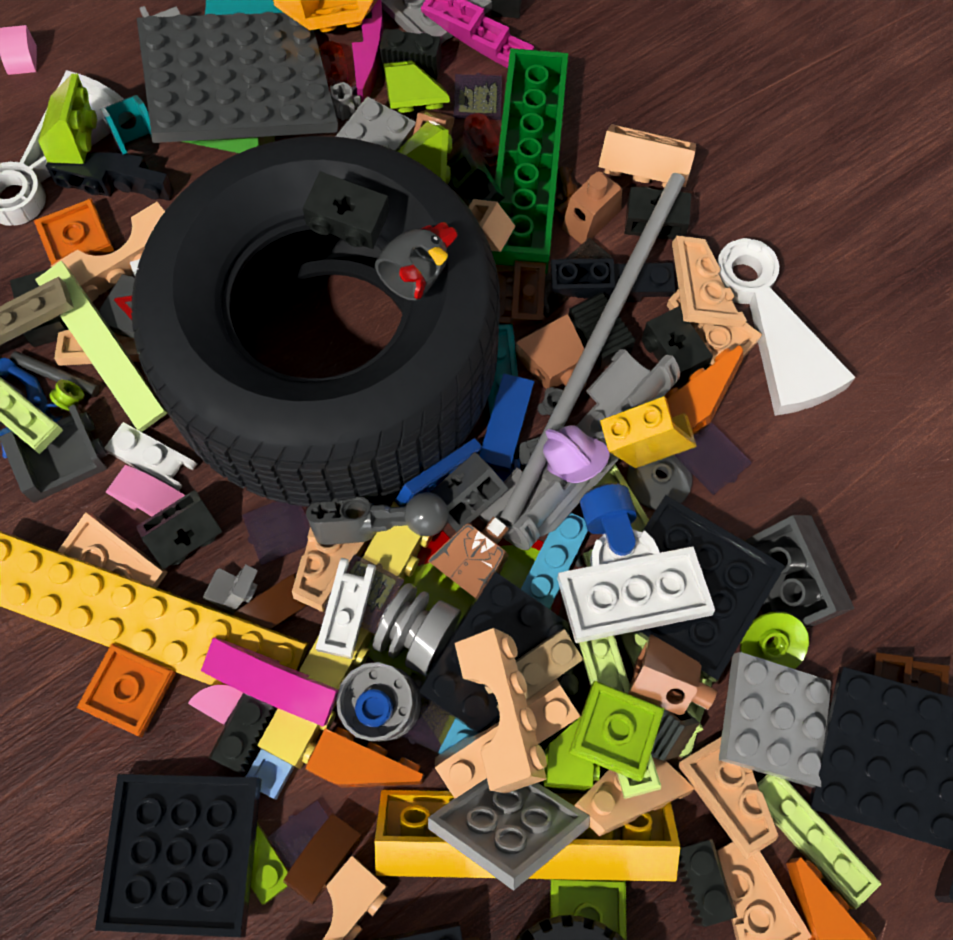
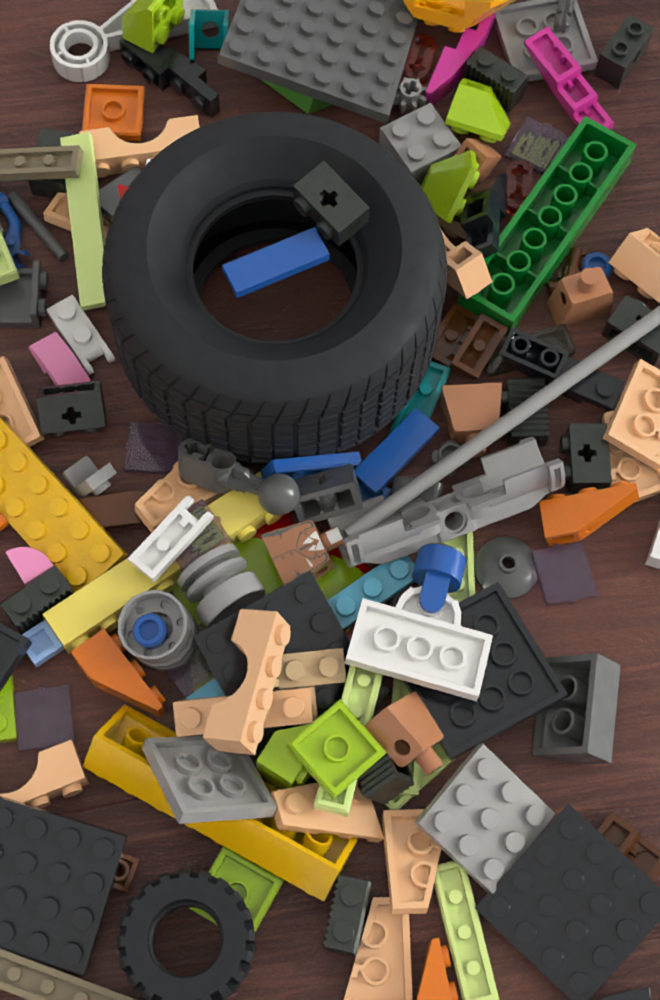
camera: 25 degrees right, 0 degrees up
(66, 394) = (38, 248): lime bush -> none
(269, 681) = (78, 567): dark pink slope -> none
(321, 291) = (275, 262): none -> blue tile
(322, 858) = (47, 730): reddish brown slope -> none
(415, 259) = (365, 272): dark grey piece -> none
(574, 454) = (432, 505): lavender piece -> none
(583, 172) = (597, 259): none -> blue tile
(647, 433) = (503, 522): yellow panel -> none
(789, 641) = (537, 765): lime dish -> none

